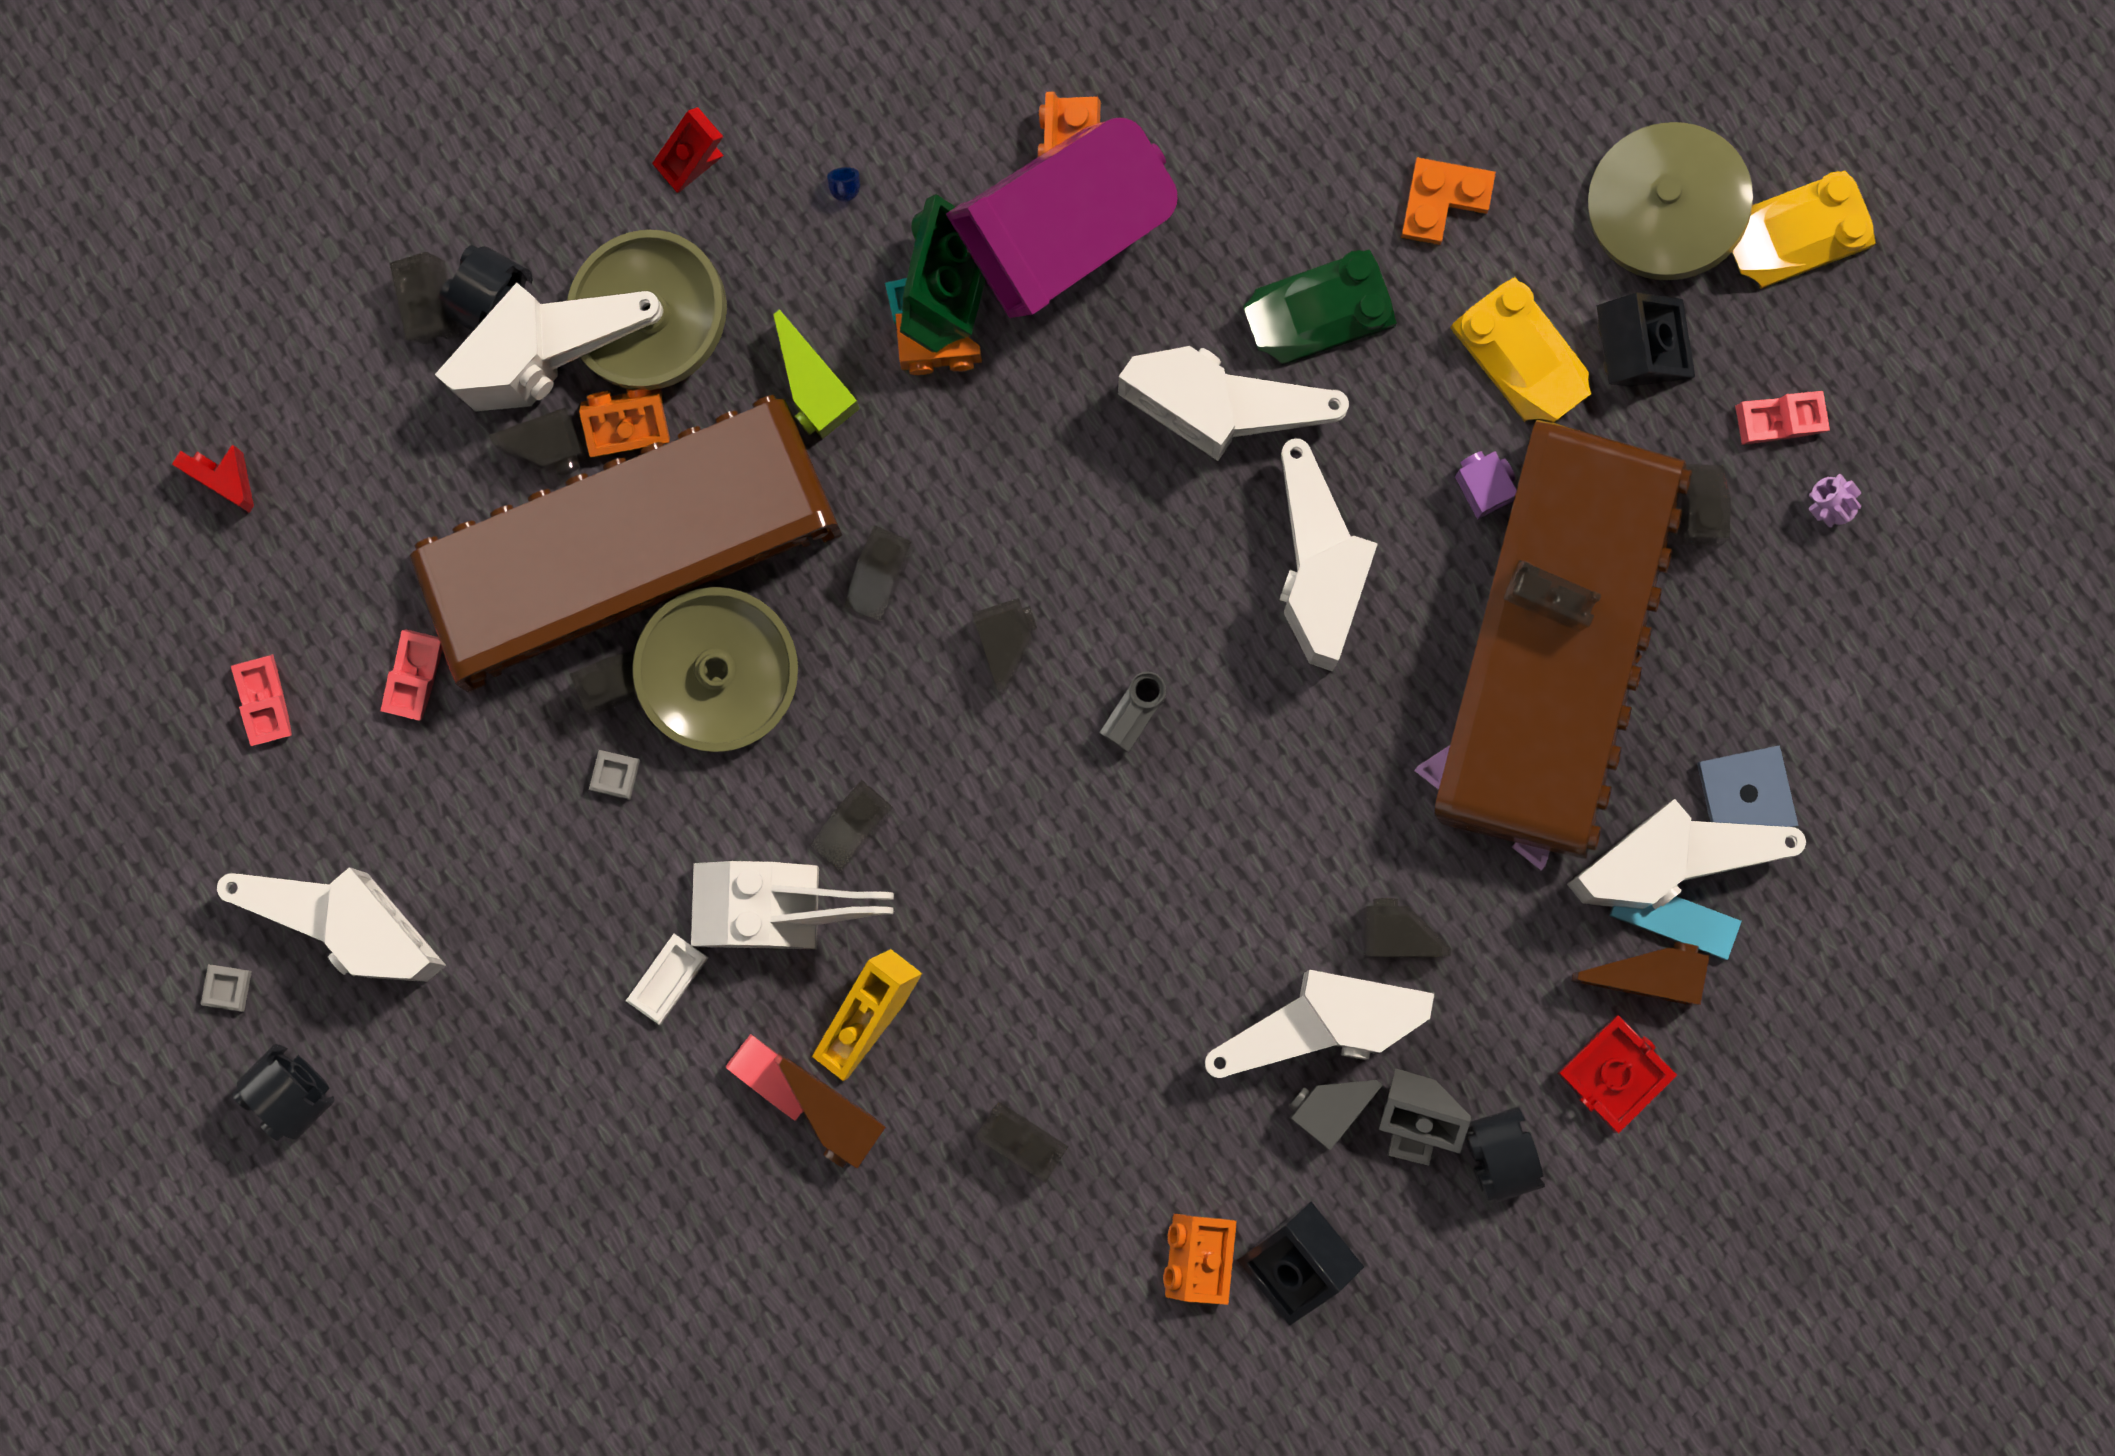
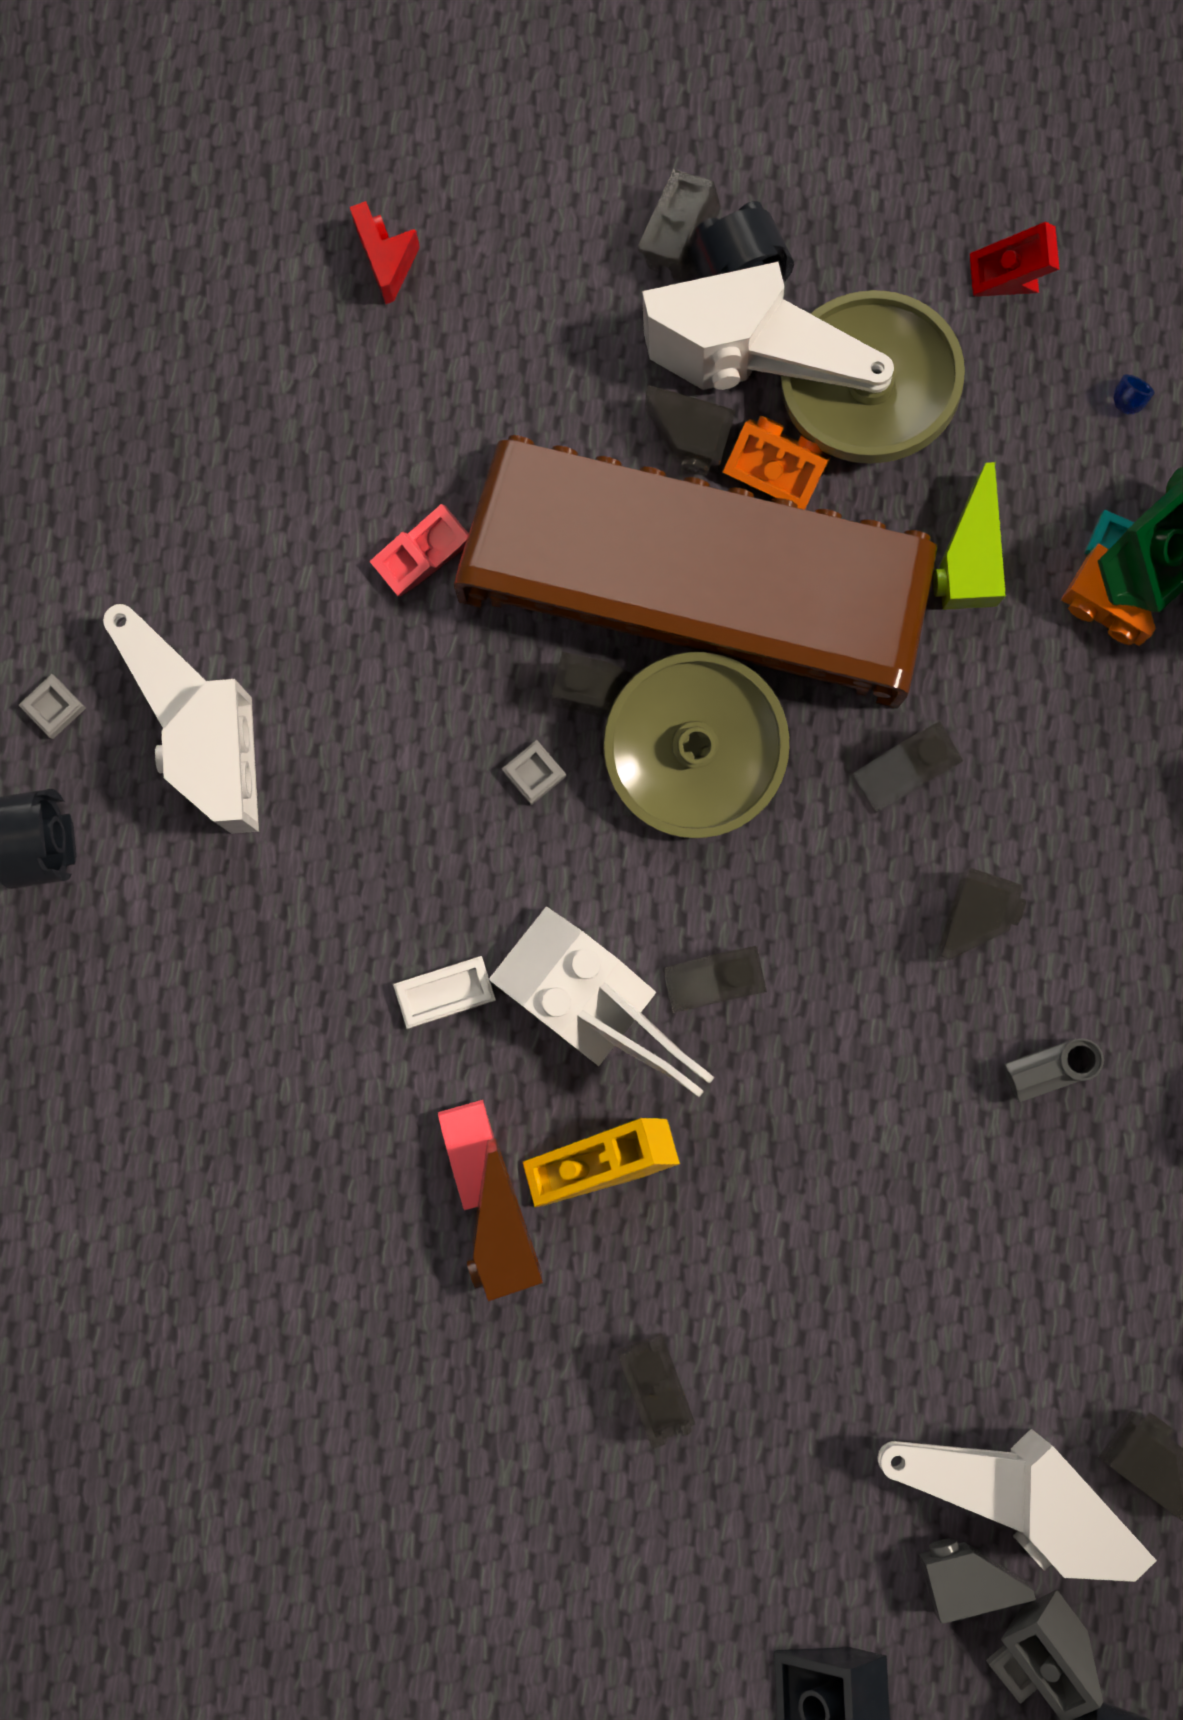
camera: 35 degrees right, 0 degrees up
(262, 700) = (274, 475): coral slope -> none
(1200, 1259) = (740, 1626): orange bracket -> none

